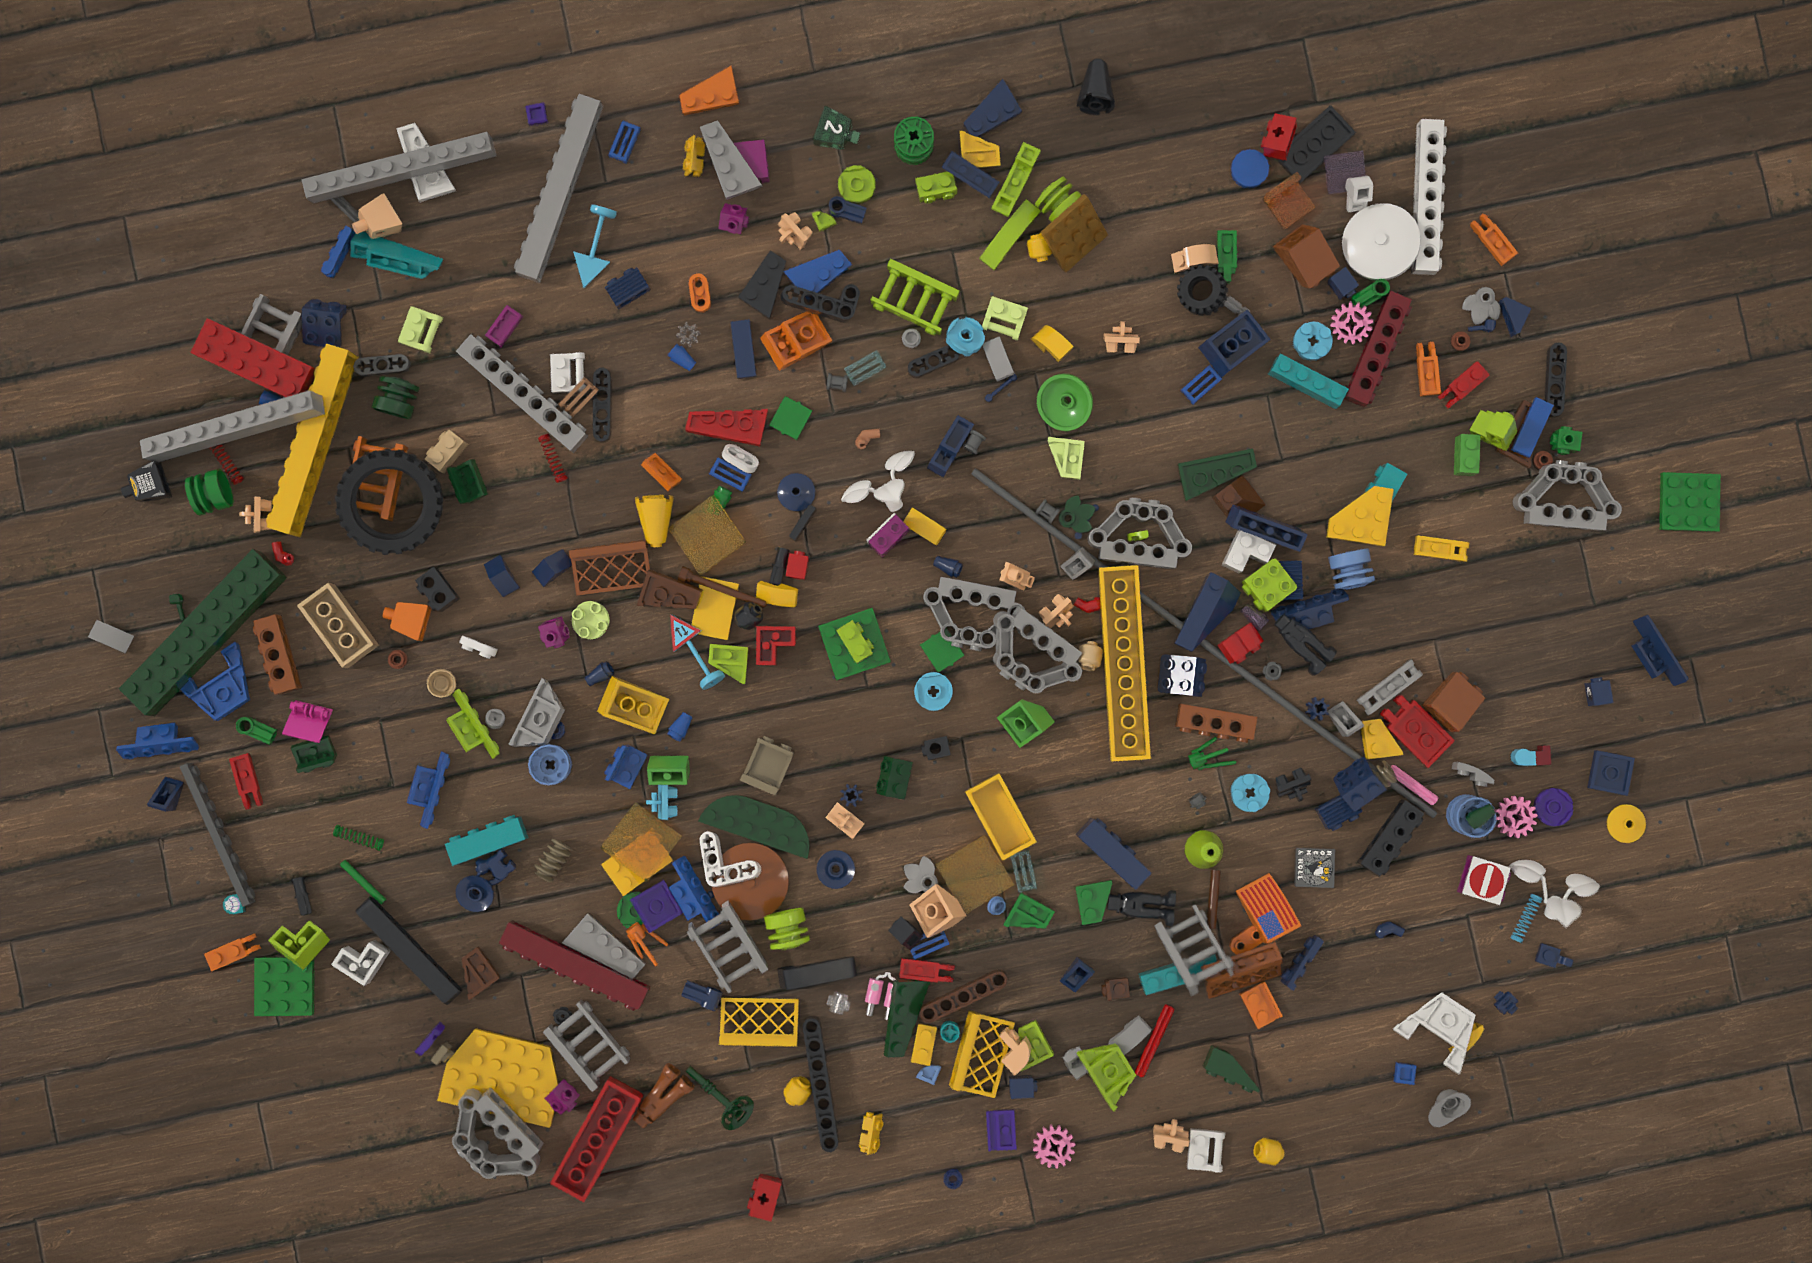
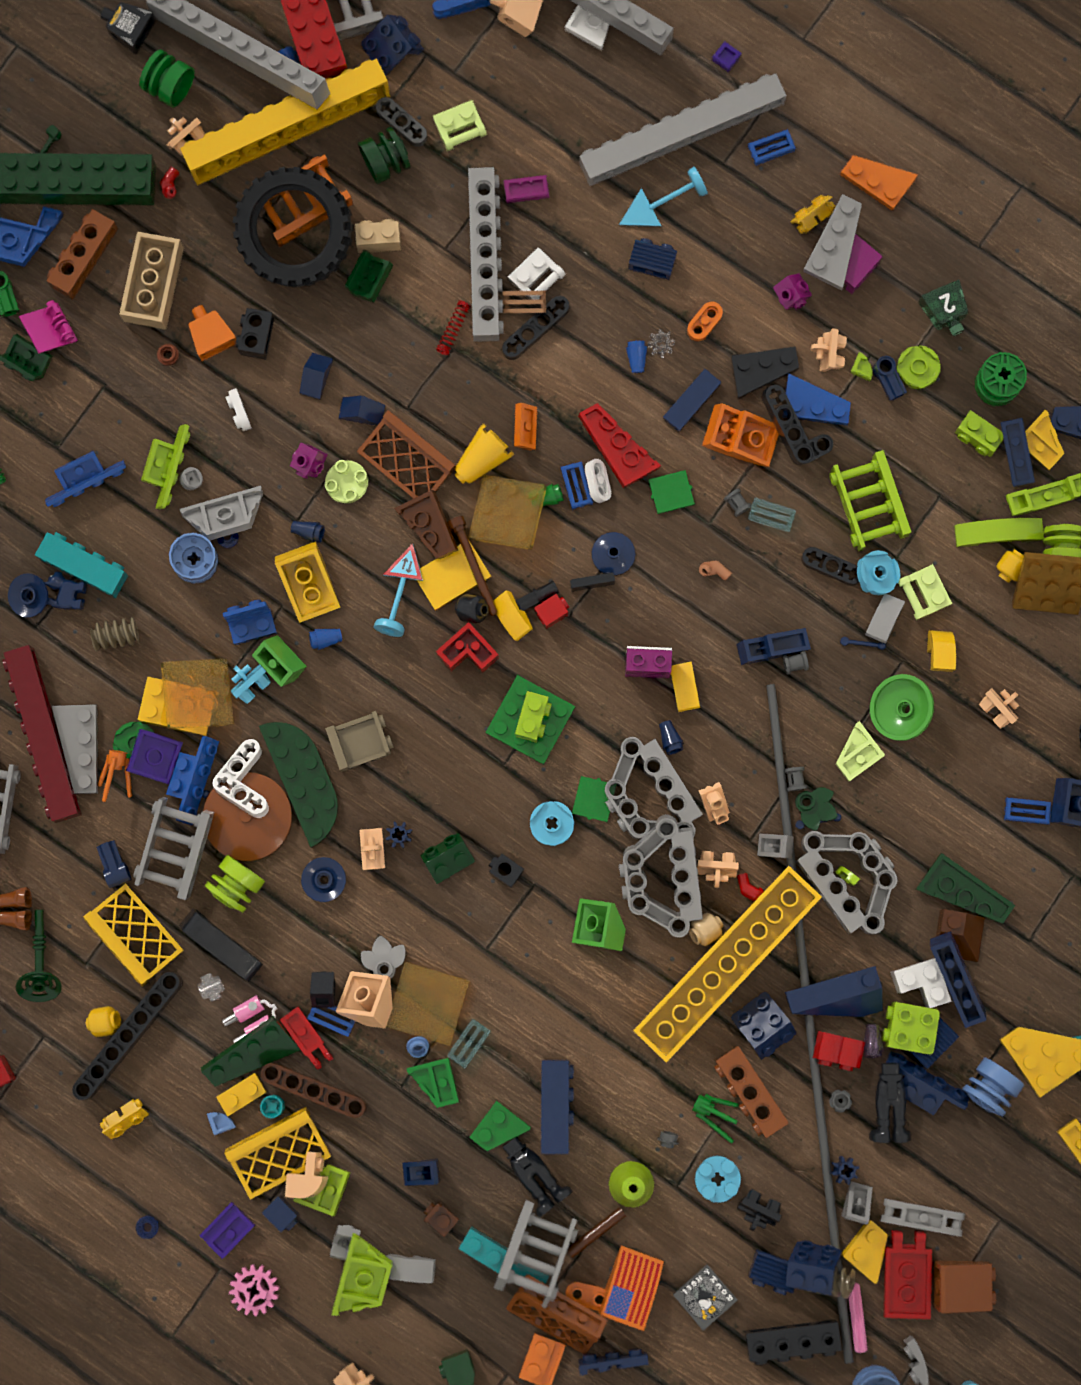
camera: 45 degrees right, 5 degrees down
(237, 479) = (202, 93): red piece -> none
(393, 256) = (499, 49): teal wedge -> none
(441, 683) = (180, 407): tan hair -> none
(730, 660) = (420, 628): lime wing -> none
(889, 492) = (684, 627): white plant -> none
(911, 338) = (833, 530): light grey plate -> none
(1000, 816) = (497, 978): yellow piece -> none
(1154, 1040) = (425, 1294): red axle -> none

